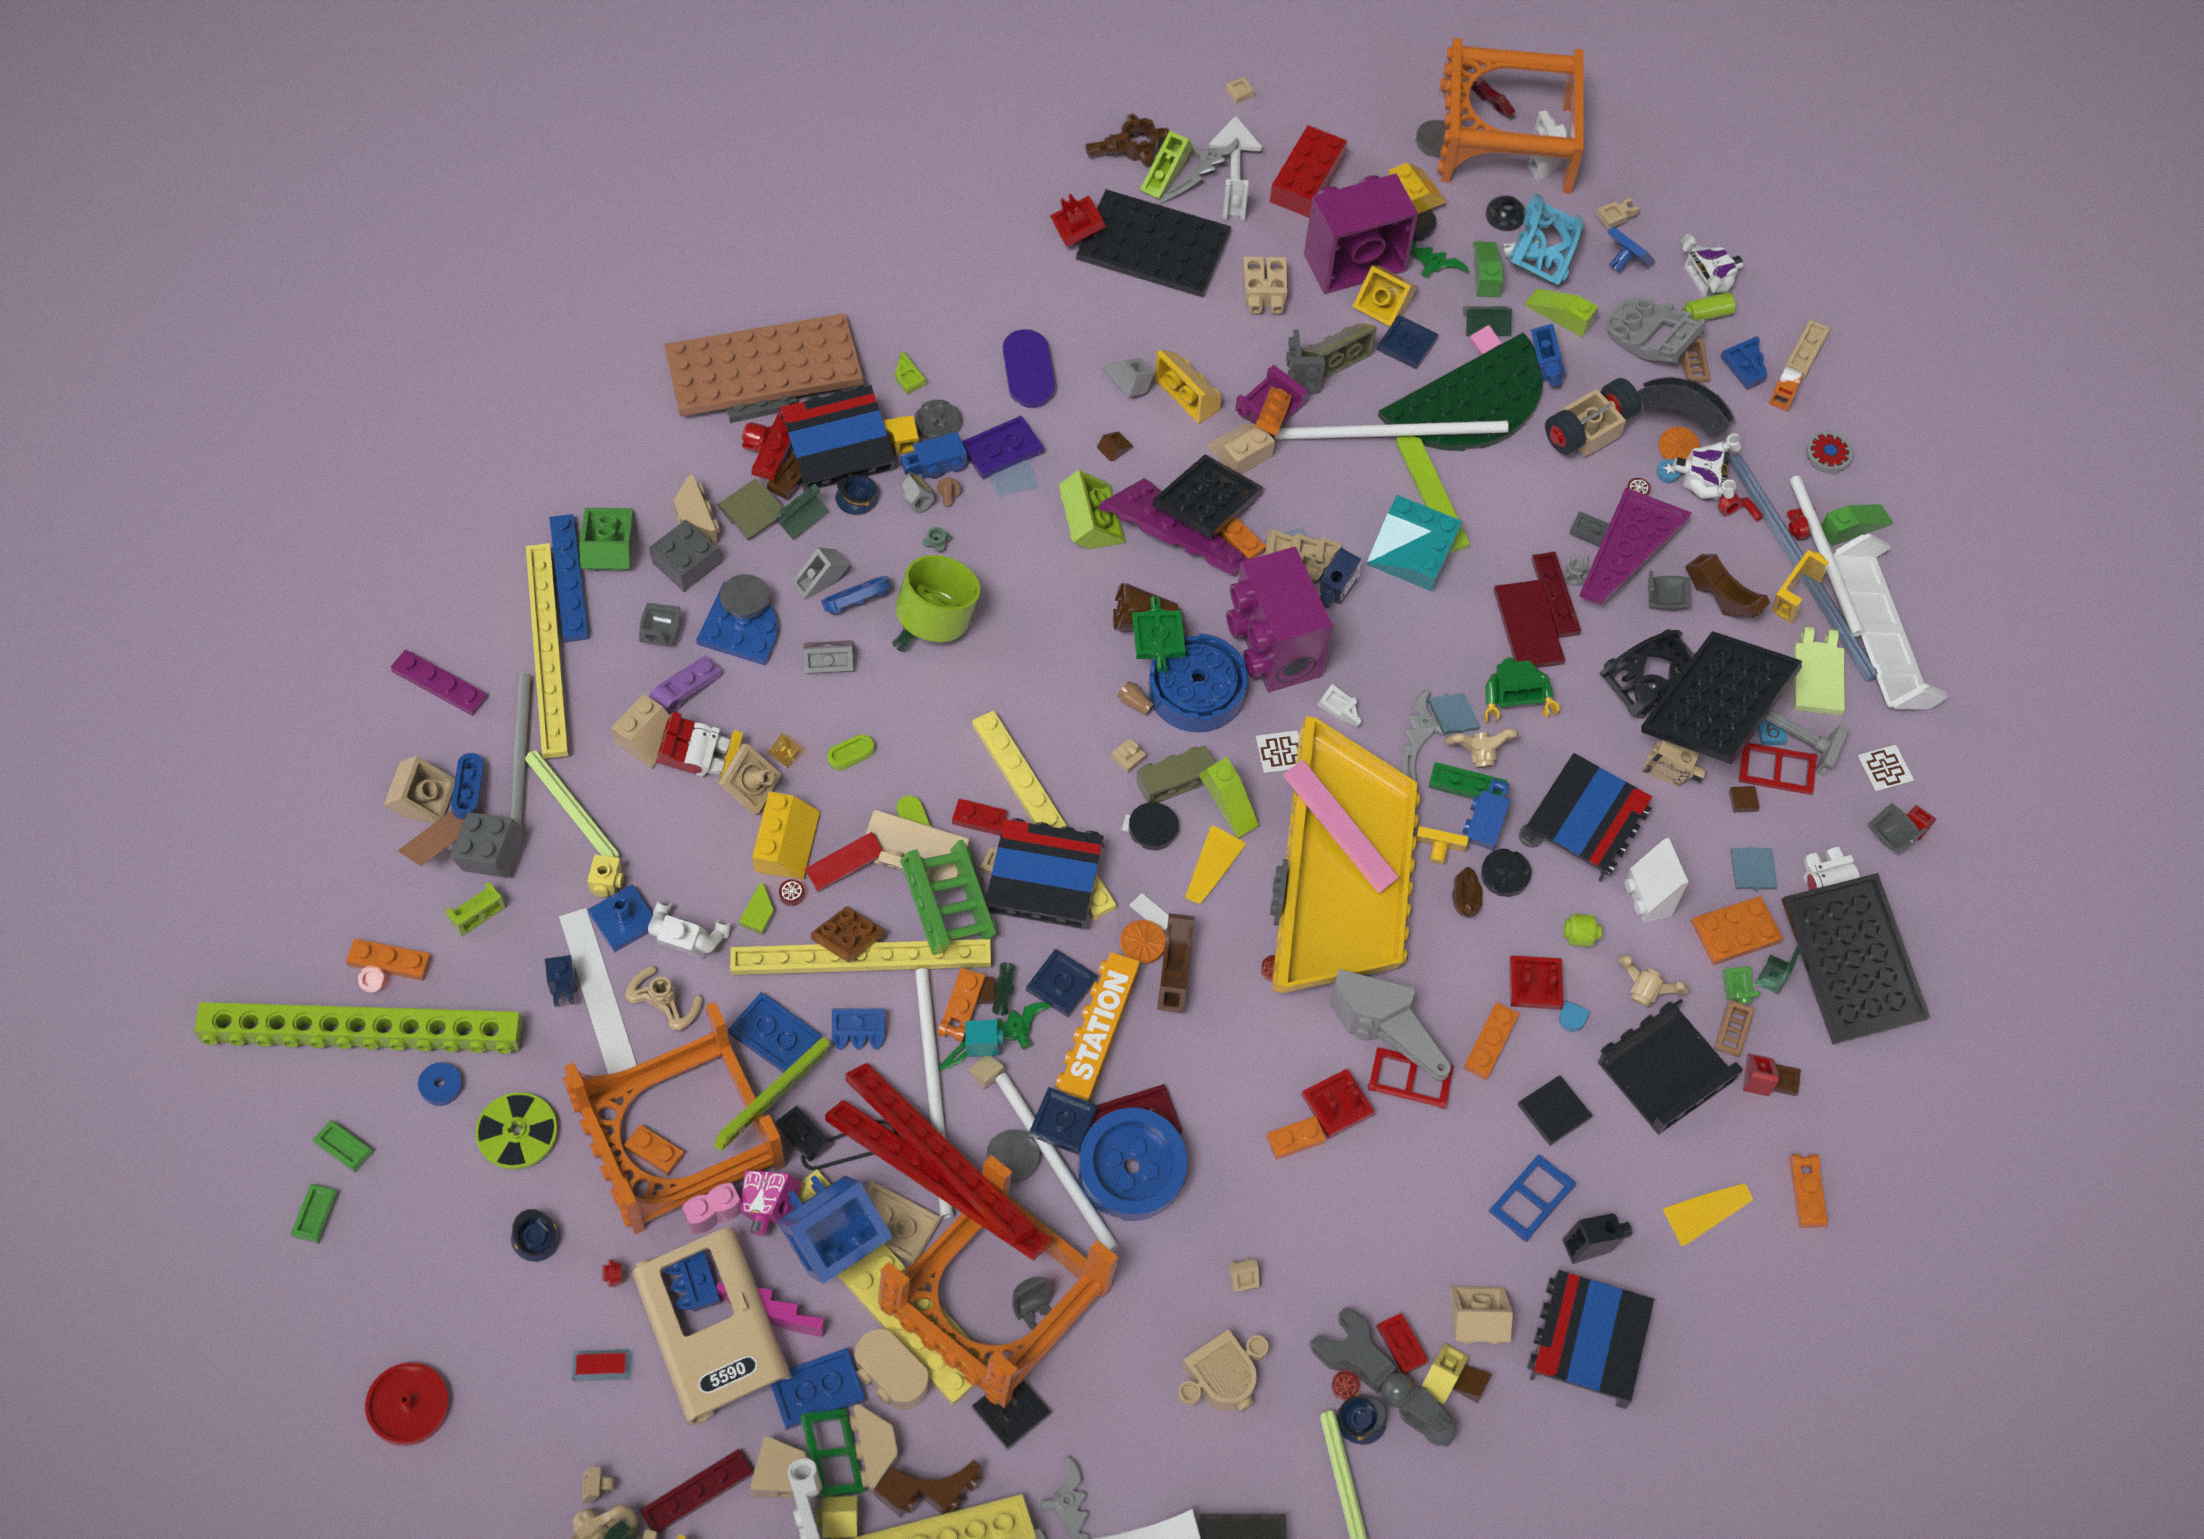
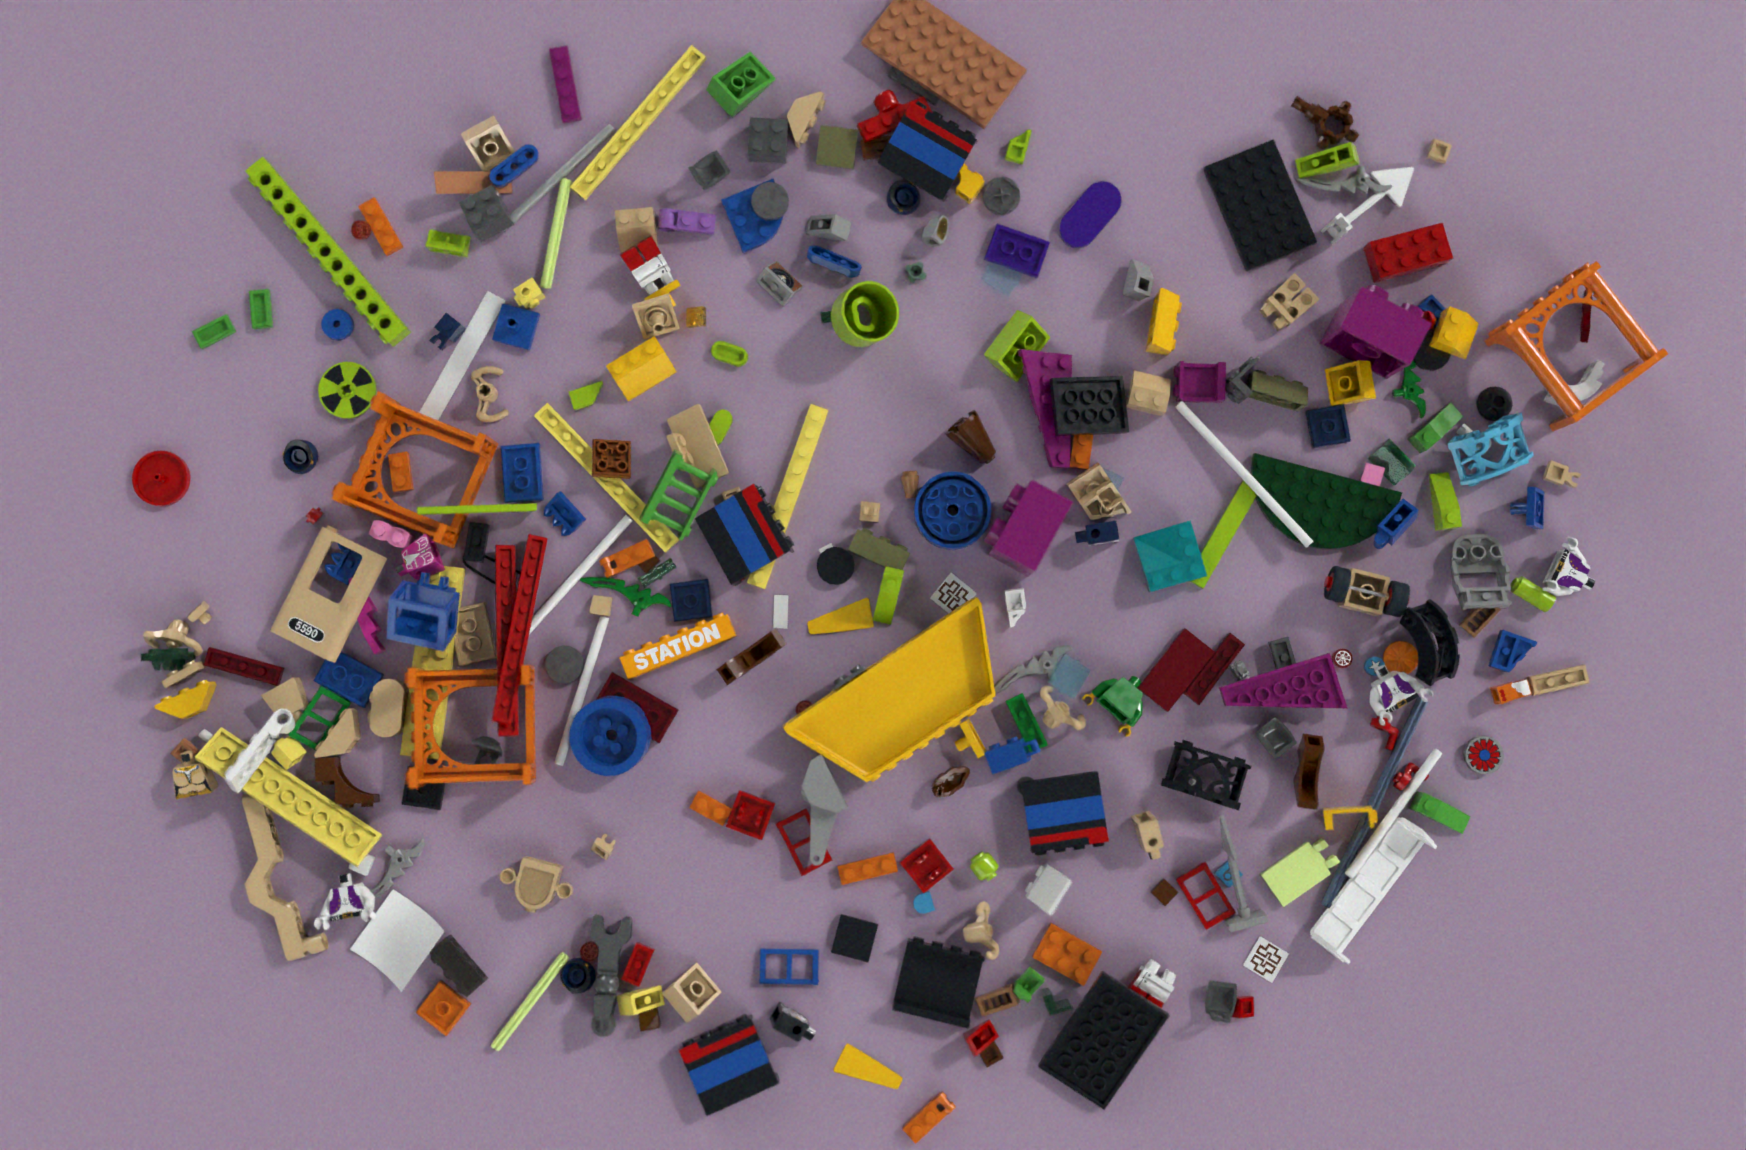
camera: 50 degrees right, 25 degrees up
(568, 578) = (696, 88): blue plate -> none
(601, 1365) = (264, 556): tile -> none
(683, 935) = (528, 371): white torso -> none
(791, 892) = (612, 403): clear red tile -> none
(801, 512) = (860, 179): clear green panel -> none
(844, 861) = (655, 415): red tile -> none
(936, 456) = (971, 220): blue brick -> none
(948, 489) = (956, 247): medium nougat plate -> none
(979, 817) = (753, 462): red plate -> none
(983, 1038) = (614, 589): teal brick -> none
(1063, 1120) = (605, 675): dark blue tile -> none
(1077, 219) = (1228, 145): red plate -> none
(1114, 445) = (1080, 315): reddish brown slope -> none
(1143, 941) = (756, 622): orange wheel -> none
(1158, 634) = (956, 464): green plate -> none
(1273, 410) = (1188, 392): orange plate -> none
(1340, 826) = (922, 676): bright pink tile -> none
(1431, 137) = (1513, 304): flat silver tile -> none
(1506, 872) = (986, 791): black tile -> none
(1721, 697) = (1209, 836): black plate -> none
(1753, 868) = (1120, 932): clear light blue piece -> none

